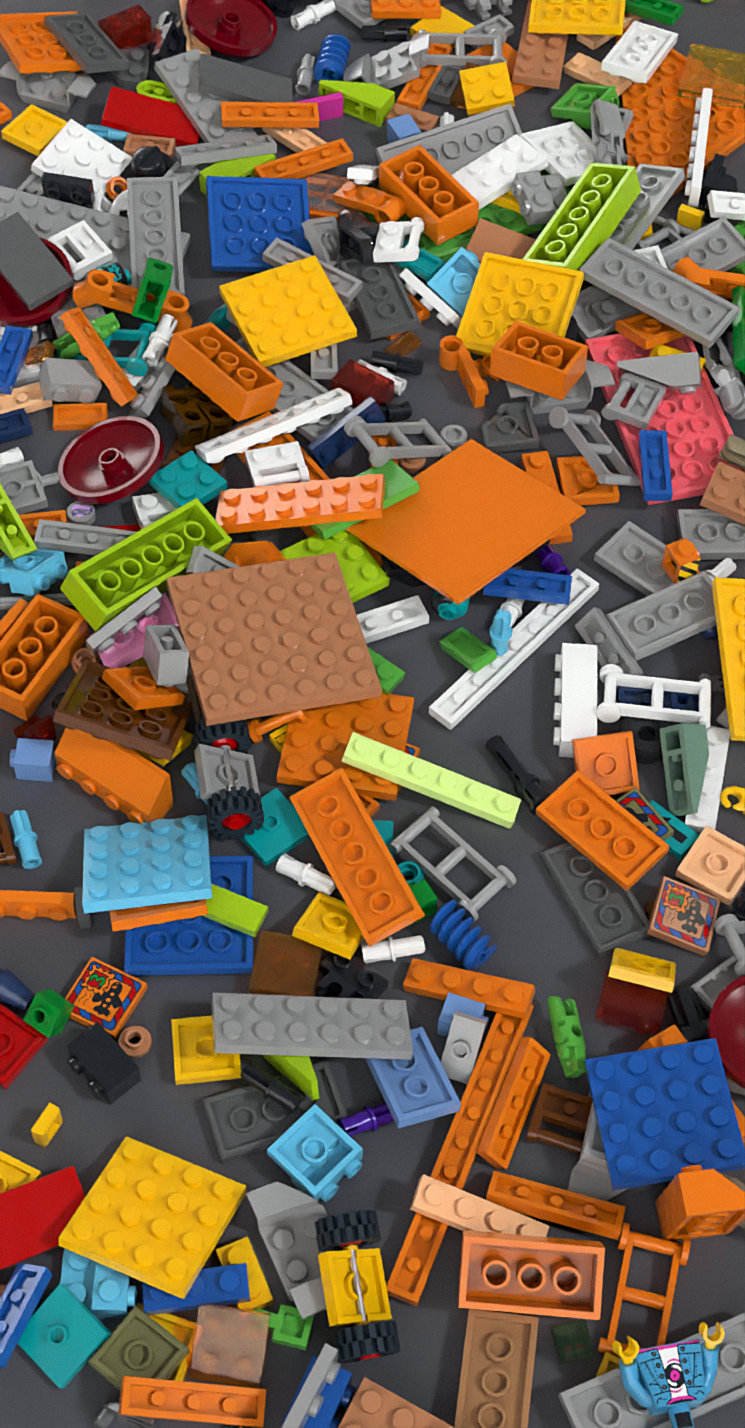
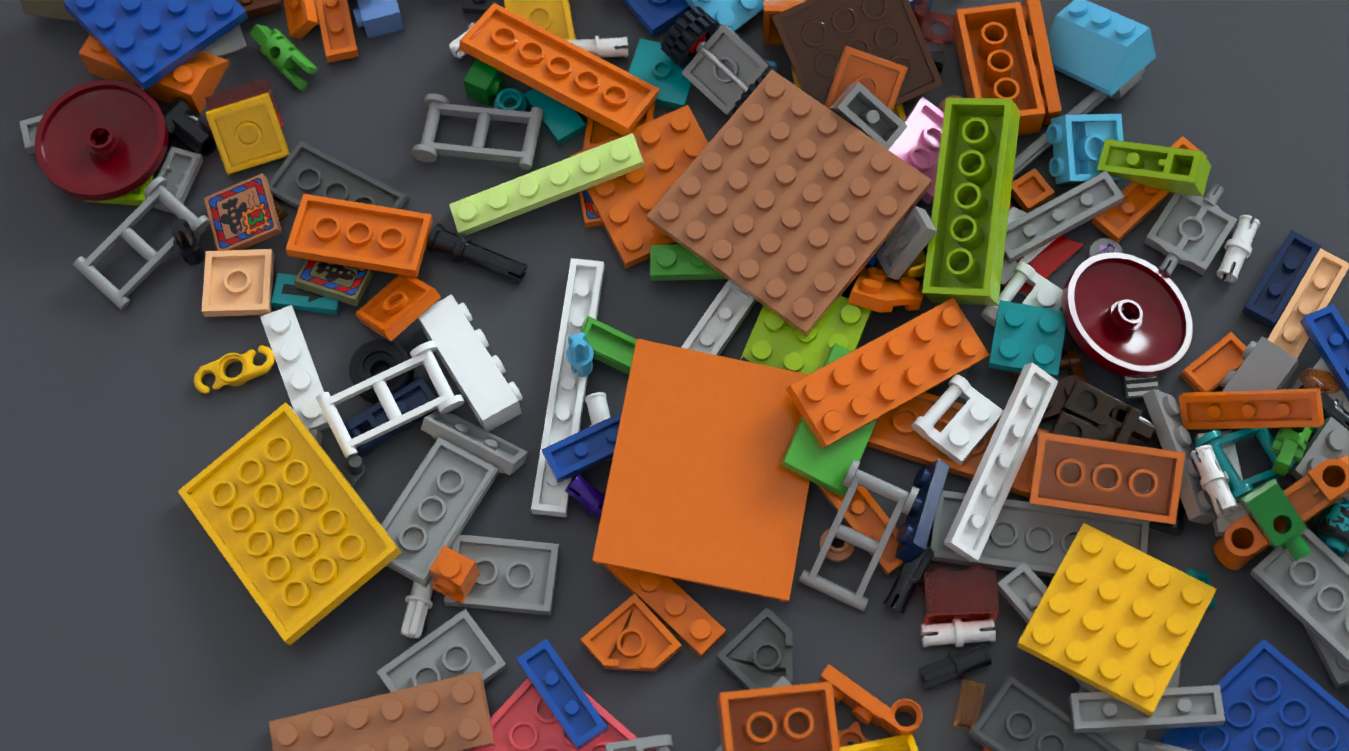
camera: 150 degrees right, 10 degrees up
(125, 621) = (929, 157): light grey plate -> none
(454, 436) = (817, 609): light grey tile -> none
(460, 938) = (424, 75): blue piece -> none
(495, 992) = (388, 37): orange plate -> none
(591, 422) = (700, 676): light grey piece -> none
(685, 764) = (320, 352): sand green slope -> none

